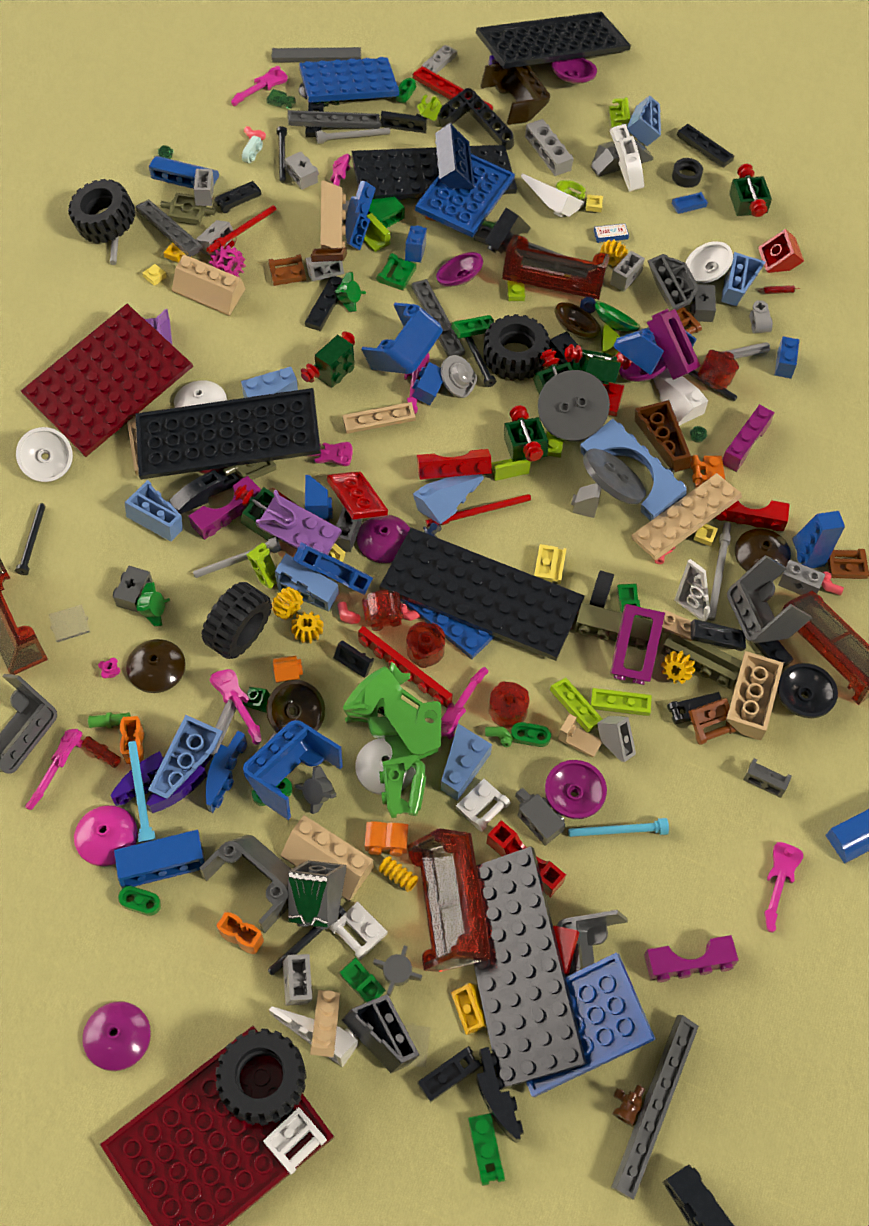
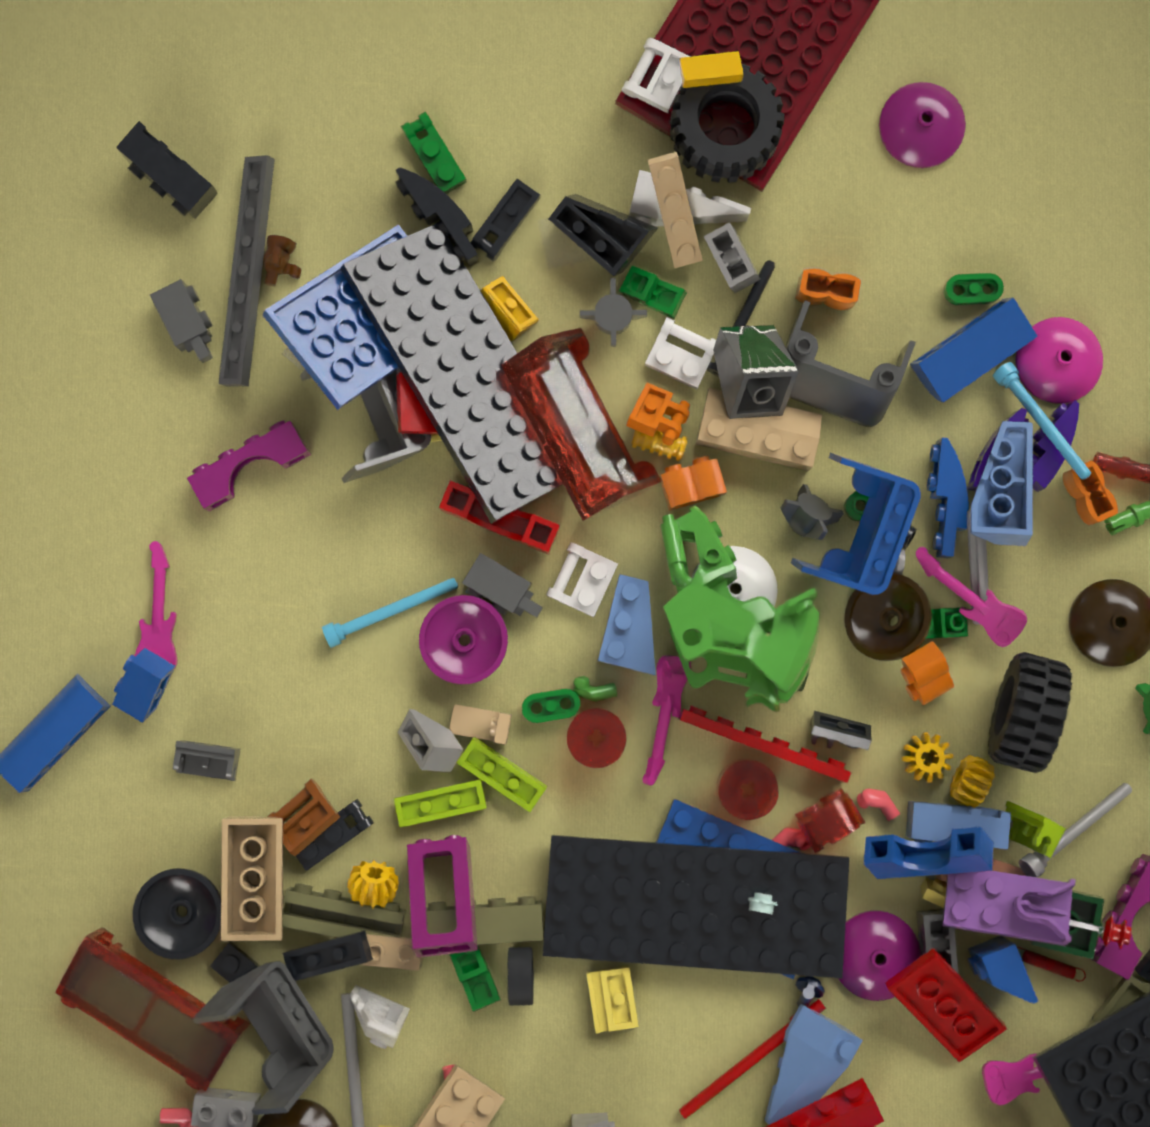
camera: 160 degrees right, 25 degrees up
(258, 1111) = (711, 69): none -> yellow slope
(396, 894) = (649, 413): none -> orange plate
(443, 575) = (762, 903): none -> light aqua plate
(713, 1084) = (183, 318): none -> dark grey hinge
(800, 833) = (142, 684): none -> blue brick

